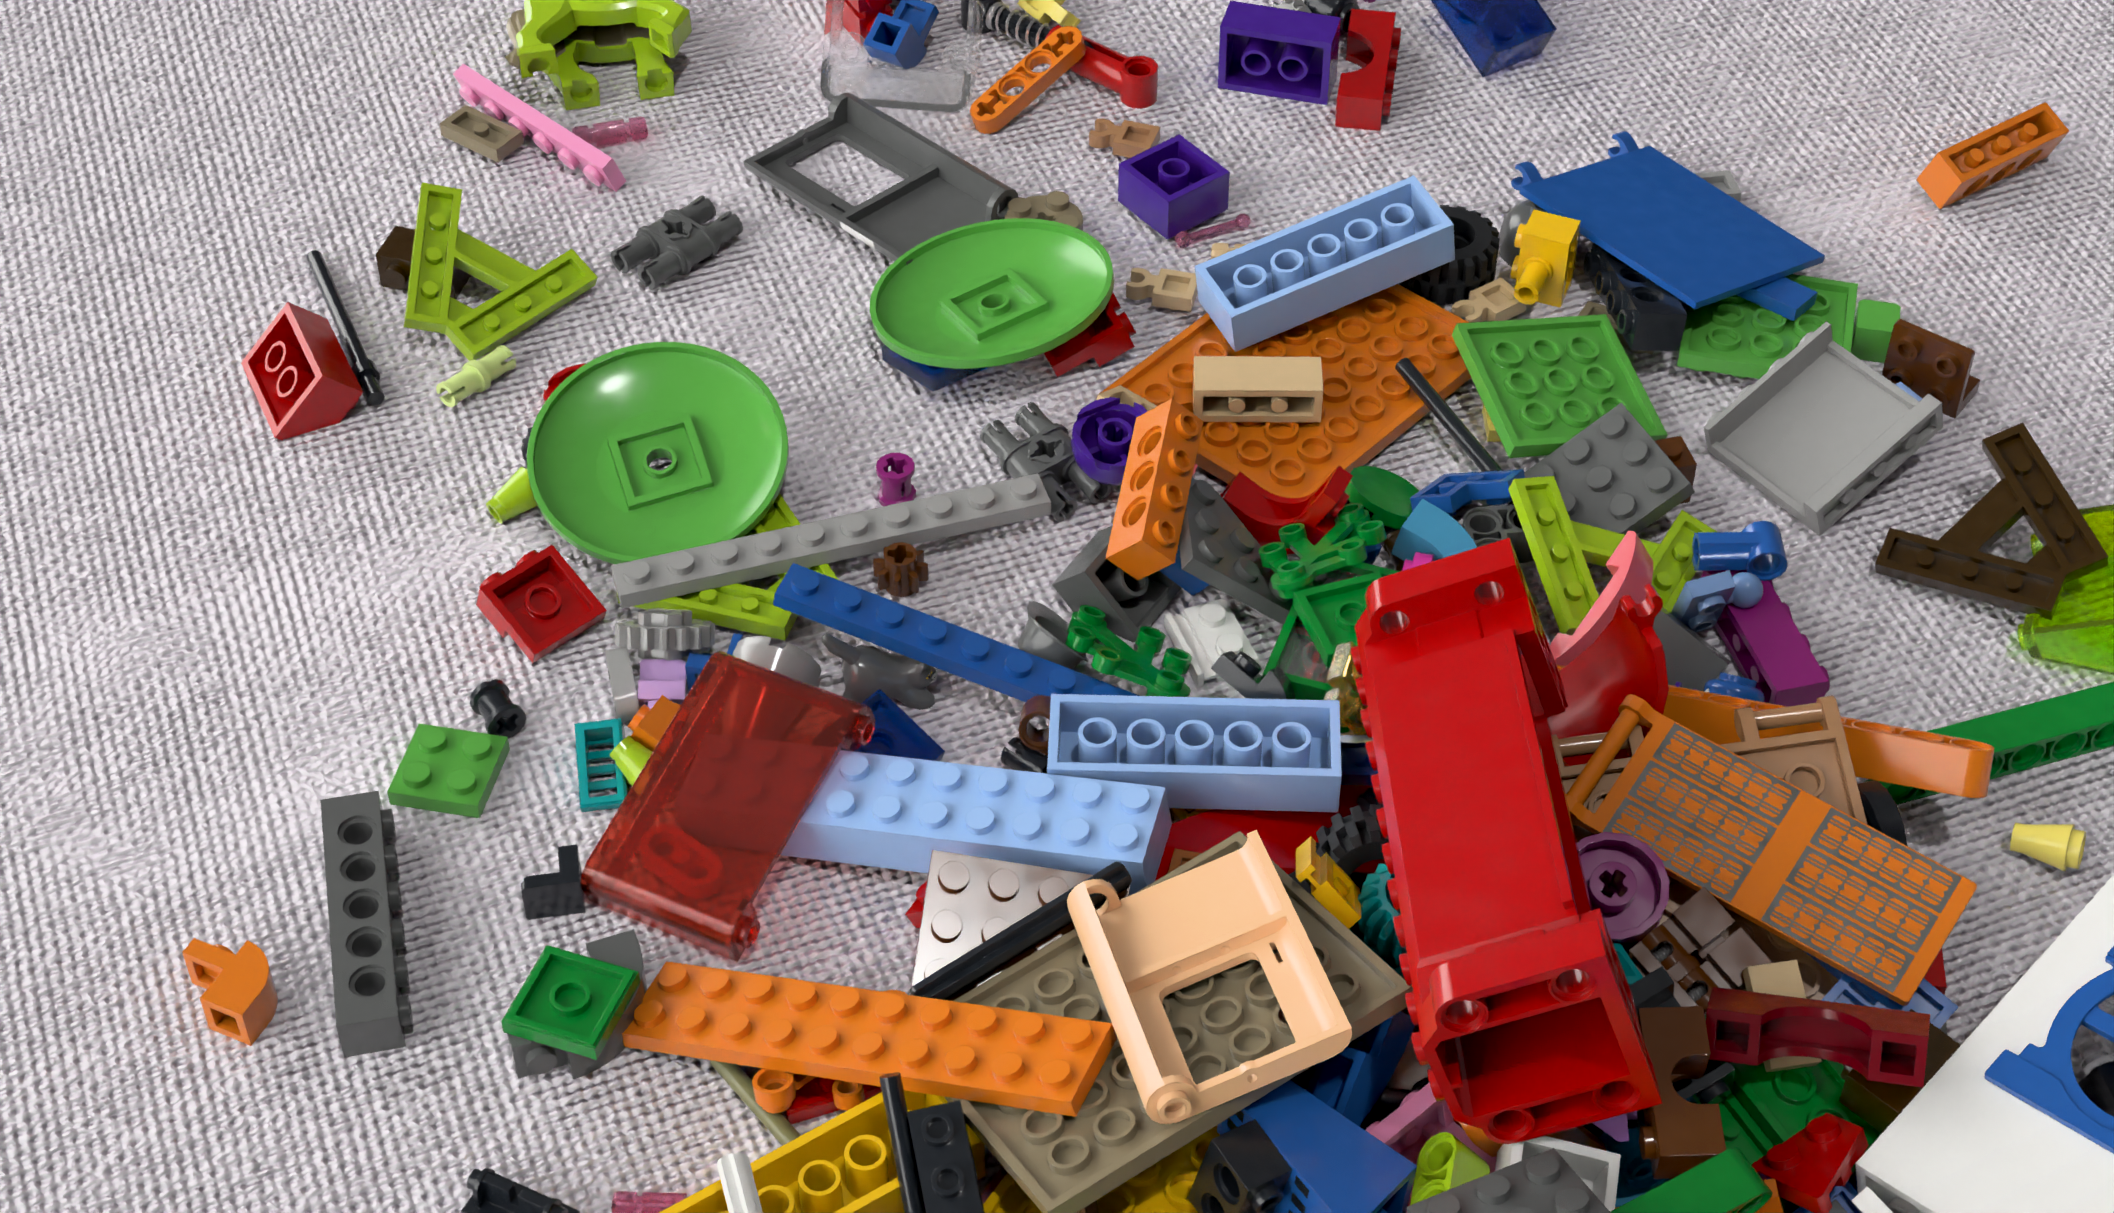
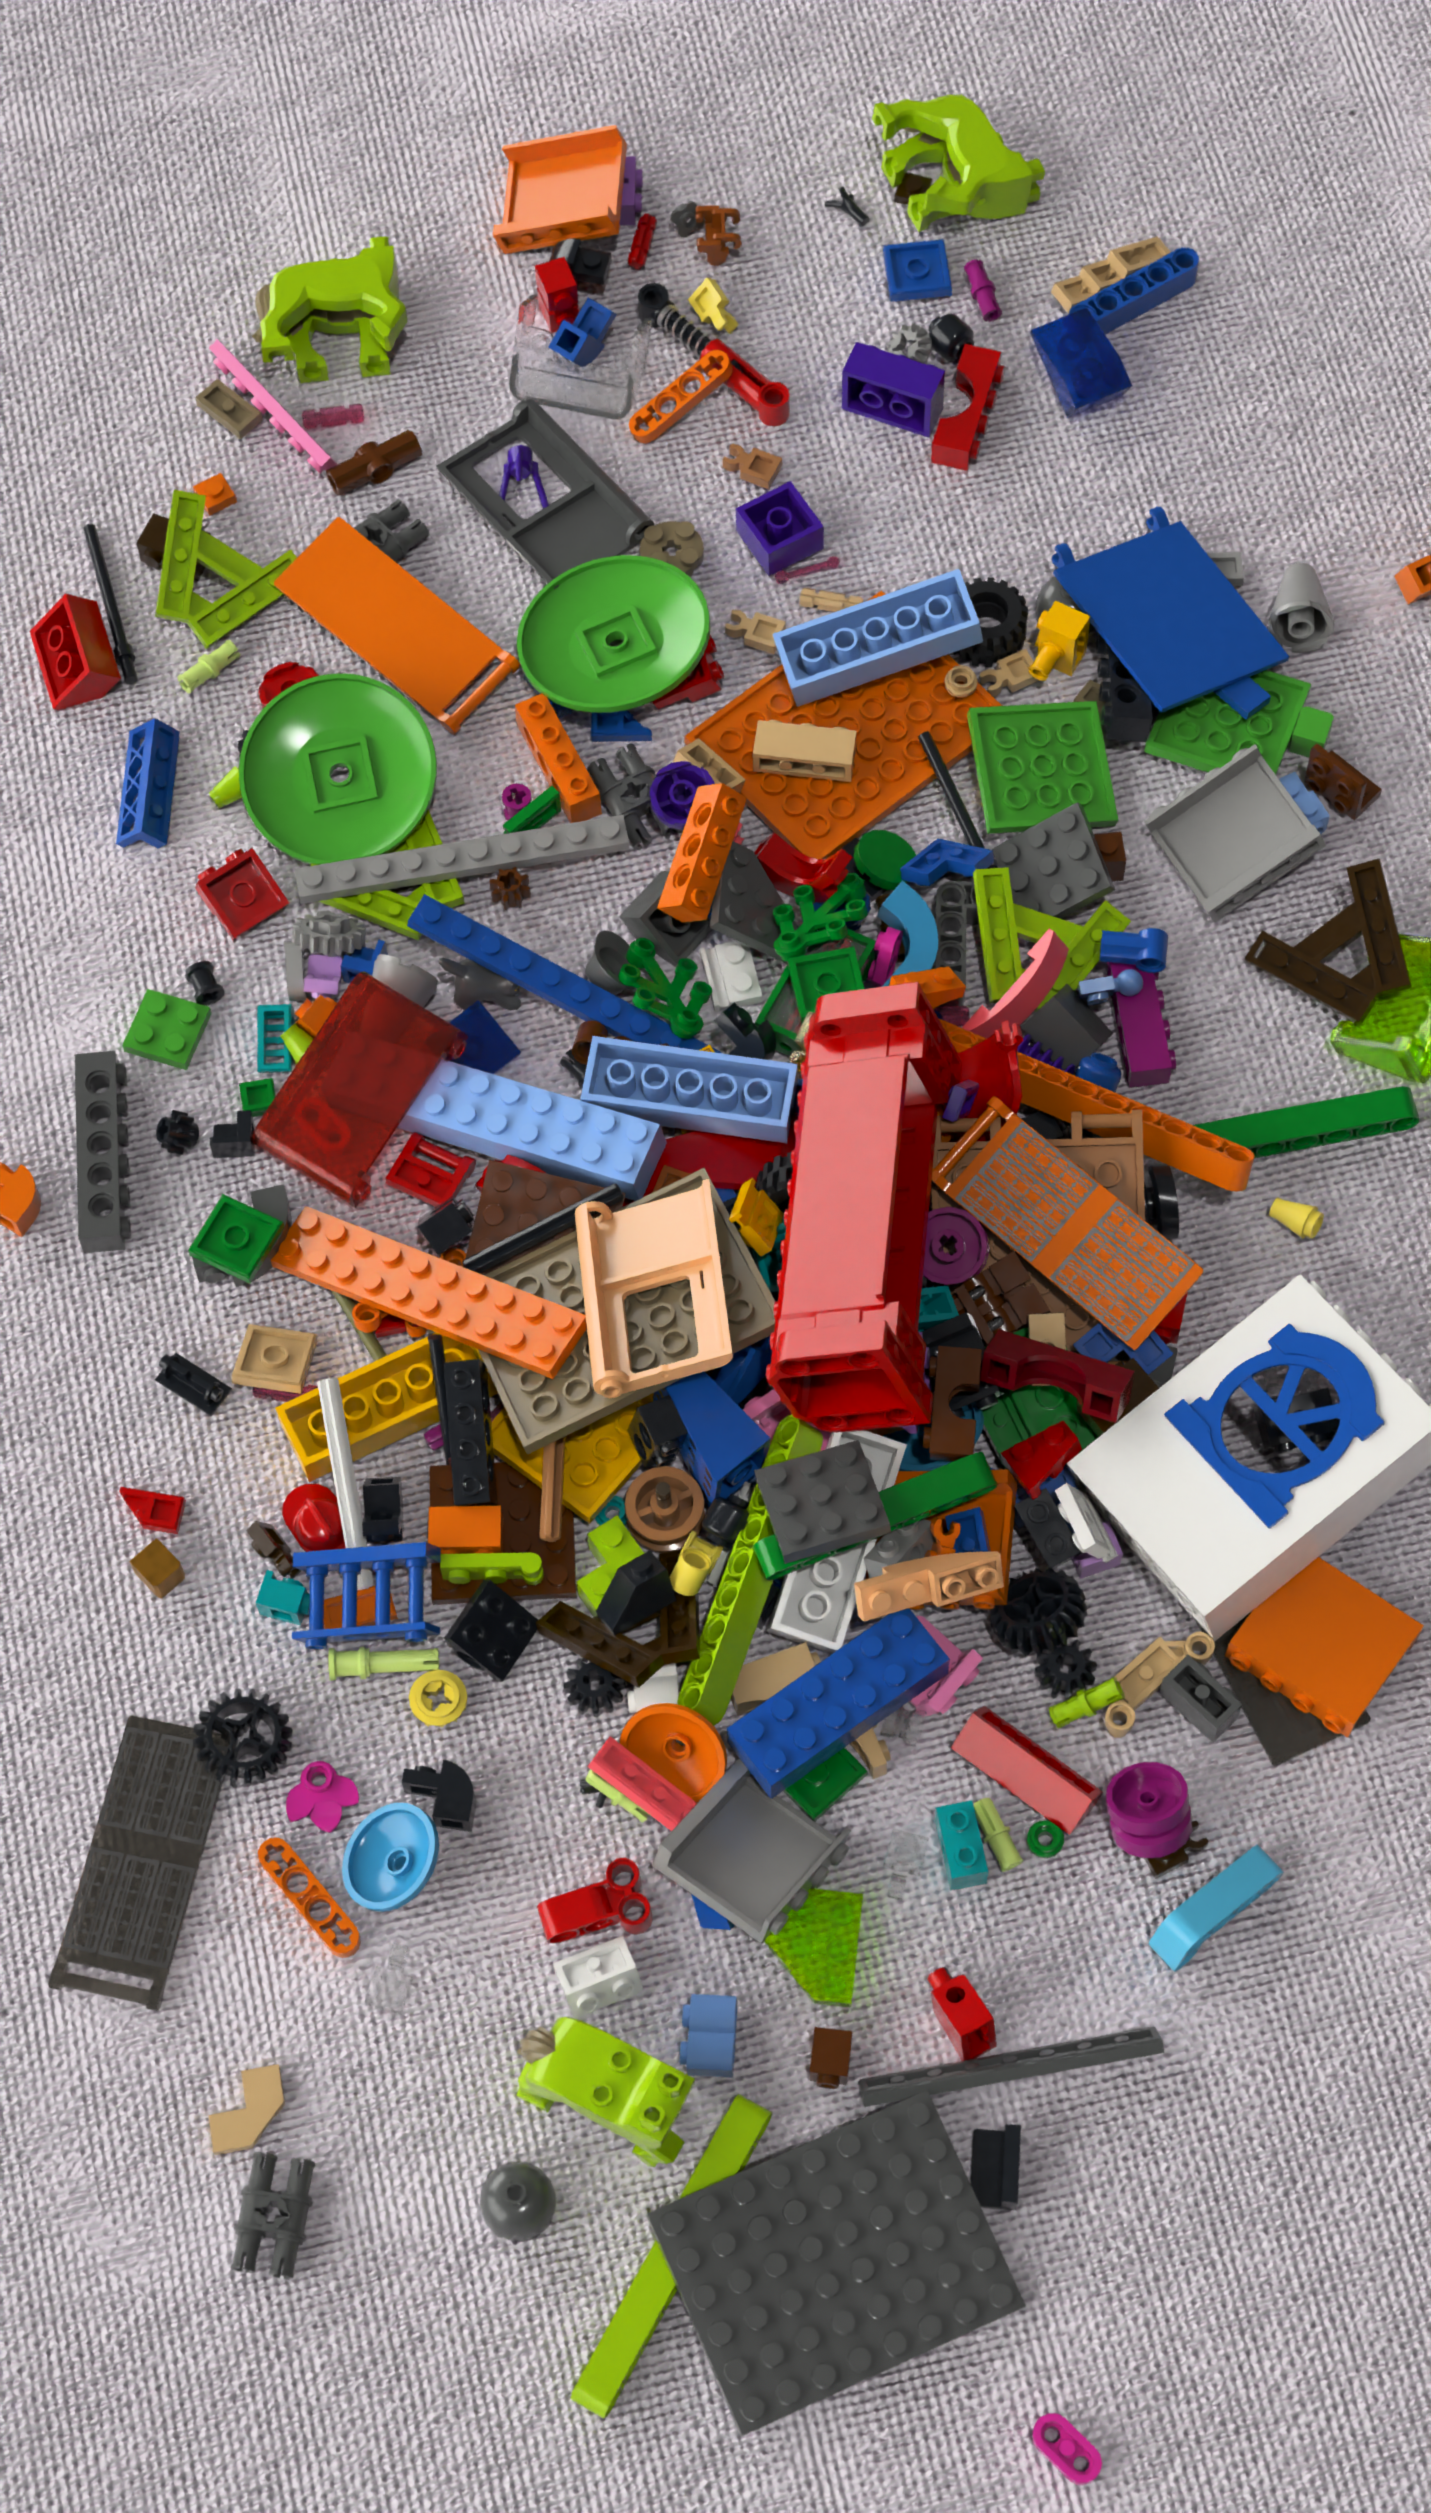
camera: 10 degrees right, 20 degrees up
(405, 502) = (152, 783): none -> blue fence
(473, 885) = (177, 1132): none -> black gear
(476, 214) = (217, 492): none -> orange plate
(584, 832) = (257, 1096): none -> green tile
(640, 1162) = (274, 1358): none -> tan tile
(665, 168) = (374, 462): none -> reddish brown piece
(692, 295) = (394, 622): none -> orange flag
(836, 913) = (424, 1179): none -> red plate
(845, 159) = (520, 466): none -> dark purple plant
(877, 951) = (446, 1224): none -> black brick
(928, 480) = (535, 813): none -> green tile
(939, 426) = (558, 758): none -> orange brick
(1007, 395) = (617, 727): none -> blue tile
(1433, 308) = (963, 674): none -> tan plate
(1577, 714) = (961, 1100): none -> dark purple plate
(1825, 215) = (1301, 610): none -> light grey cone

